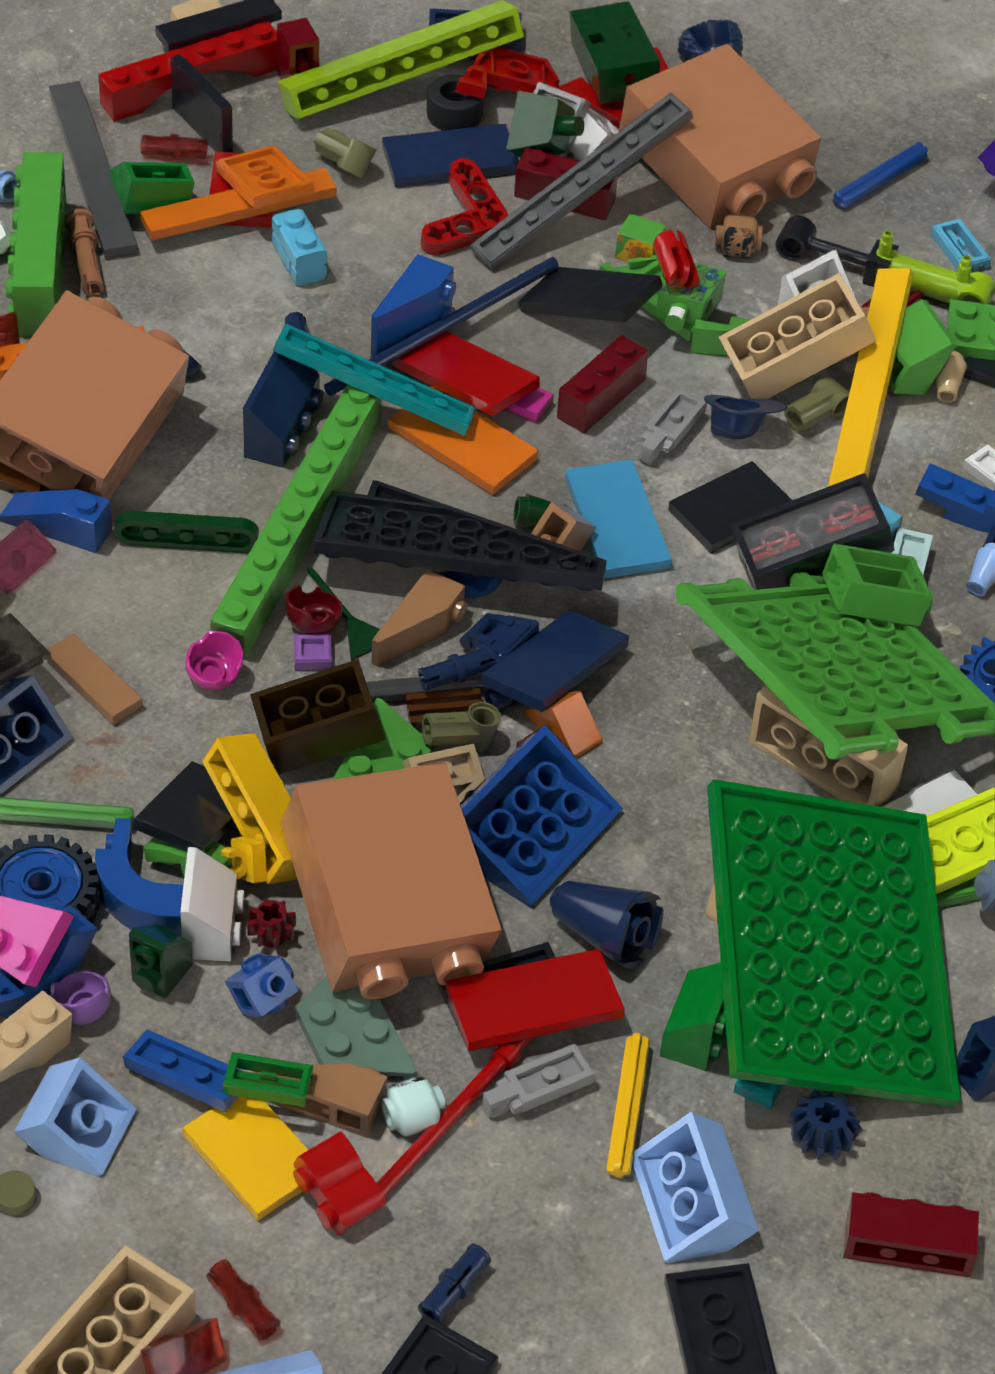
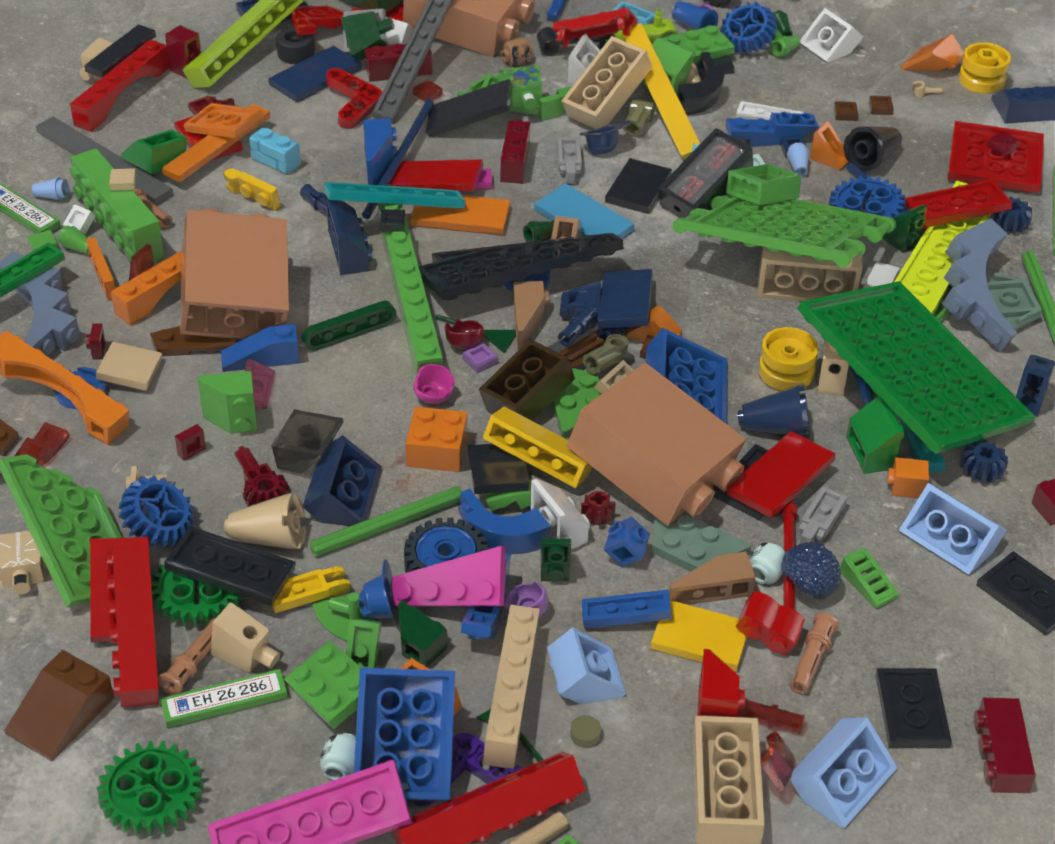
camera: 30 degrees left, 5 degrees down
(53, 211) = (122, 179): none -> tan tile
(94, 679) = (370, 430): medium nougat tile -> none
(157, 734) = (436, 439): none -> orange brick
(174, 146) = (146, 128): clear red pin -> none
(176, 1233) = (719, 689): none -> red slope
(201, 105) = (149, 98): black tile -> none
(228, 286) = (252, 188): none -> yellow hinge
(247, 859) = (557, 476): yellow tile -> none
(267, 1085) = (687, 589): green tile -> none
(285, 143) = (201, 103): none -> dark red tile
(338, 414) = (392, 221): none -> black tile
(347, 152) = (260, 92): olive piece -> none
(380, 1240) = (817, 643): none -> nougat pin
(447, 1145) = (812, 569): none -> dark blue hair
(470, 1265) = (877, 642): dark blue pin -> none
(525, 1168) = (861, 561): none -> bright green slope
(573, 243) = (427, 90): none -> clear red tile
(628, 1106) = (876, 505): yellow axle -> none
(637, 238) = (466, 72): bright green brick -> none
(675, 260) = (511, 67): red arm -> none
(680, 849) = (788, 358): none -> yellow wheel
(701, 1089) = (908, 477): none -> orange brick
(852, 244) = (595, 25): none -> red piece
(948, 410) = (703, 94): none -> black arch

